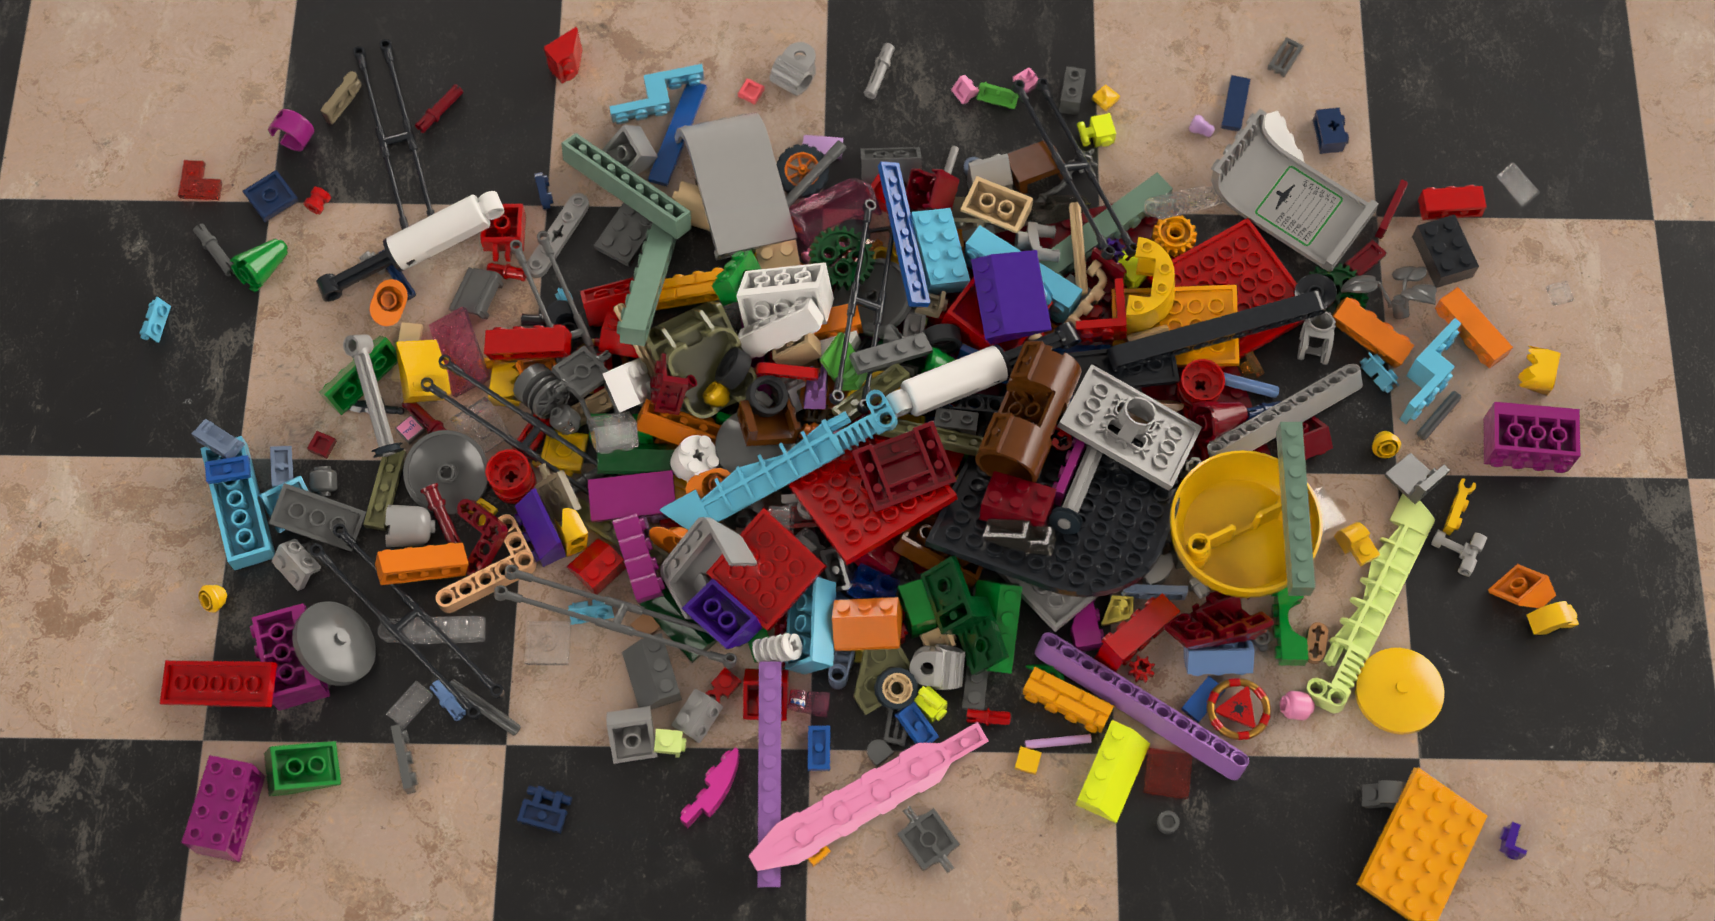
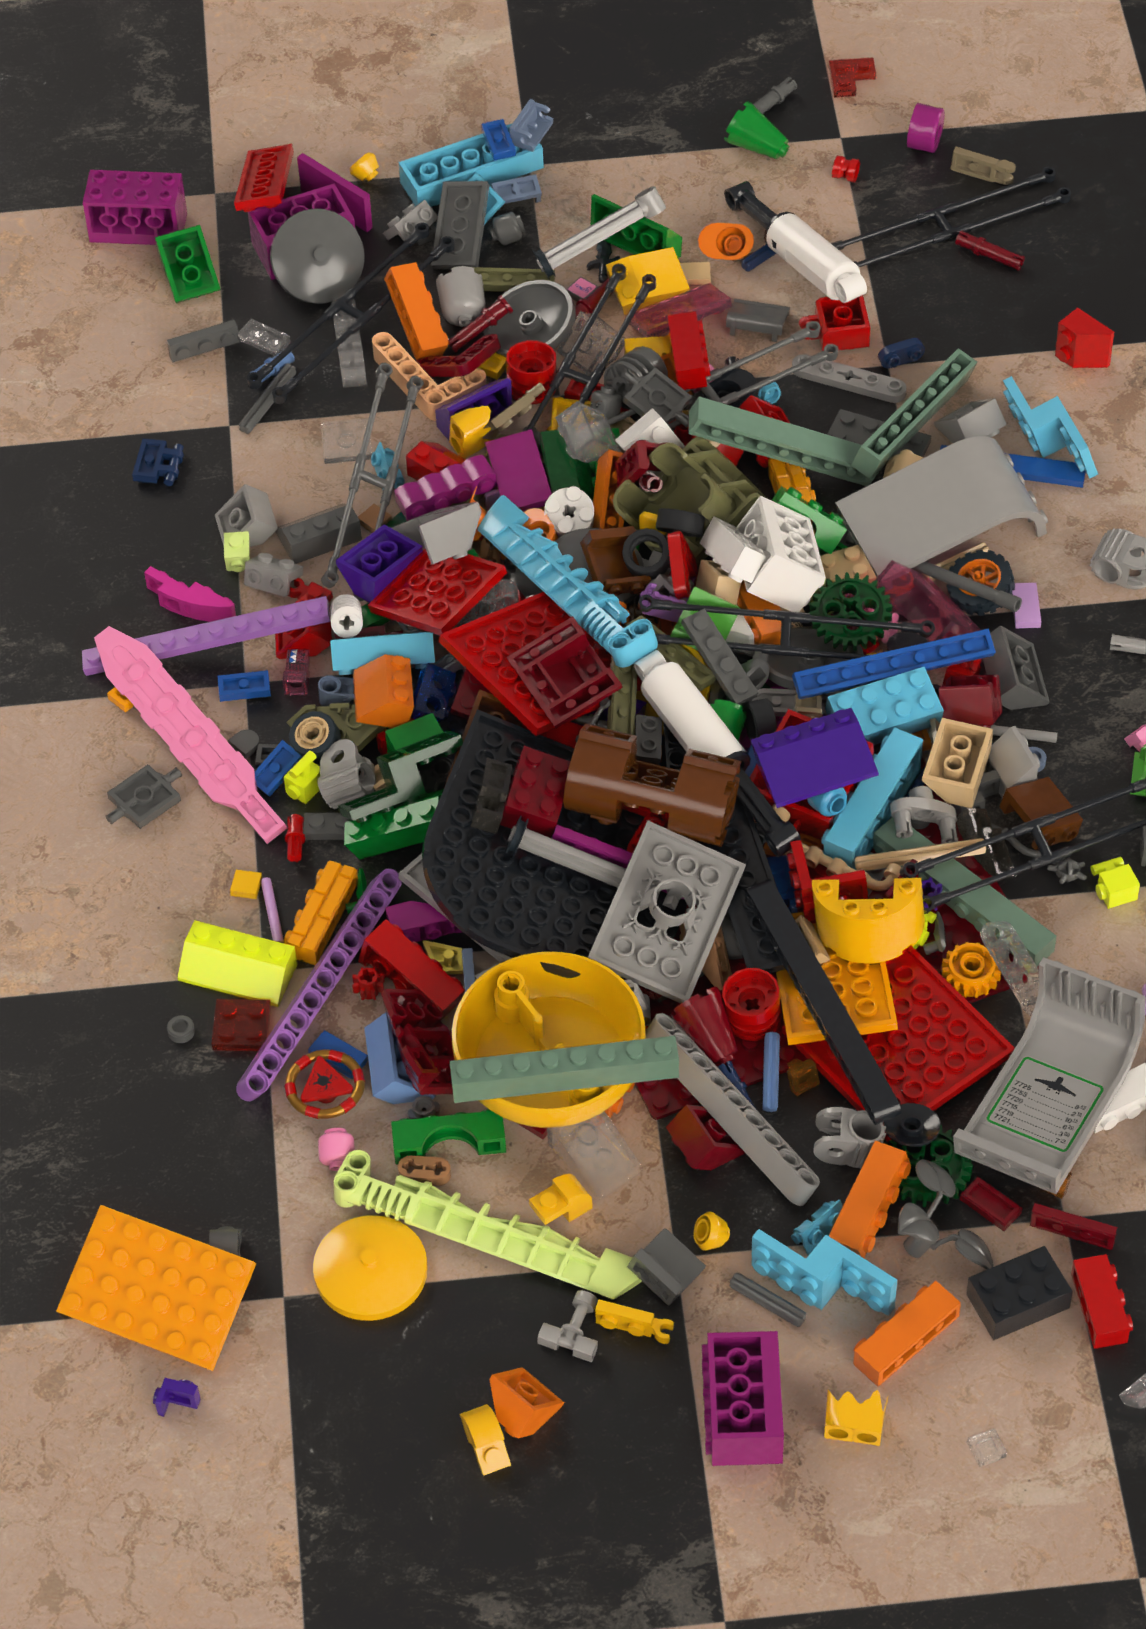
camera: 85 degrees right, 15 degrees down
(157, 316) = (675, 71): medium azure hinge -> none
(238, 629) = (315, 175): none -> magenta tile
(270, 195) = (844, 132): dark blue plate -> none
(321, 444) = (551, 222): dark red plate -> none
(507, 271) = (791, 327): red axle -> none
(751, 91) = (1088, 528): coral tile -> none

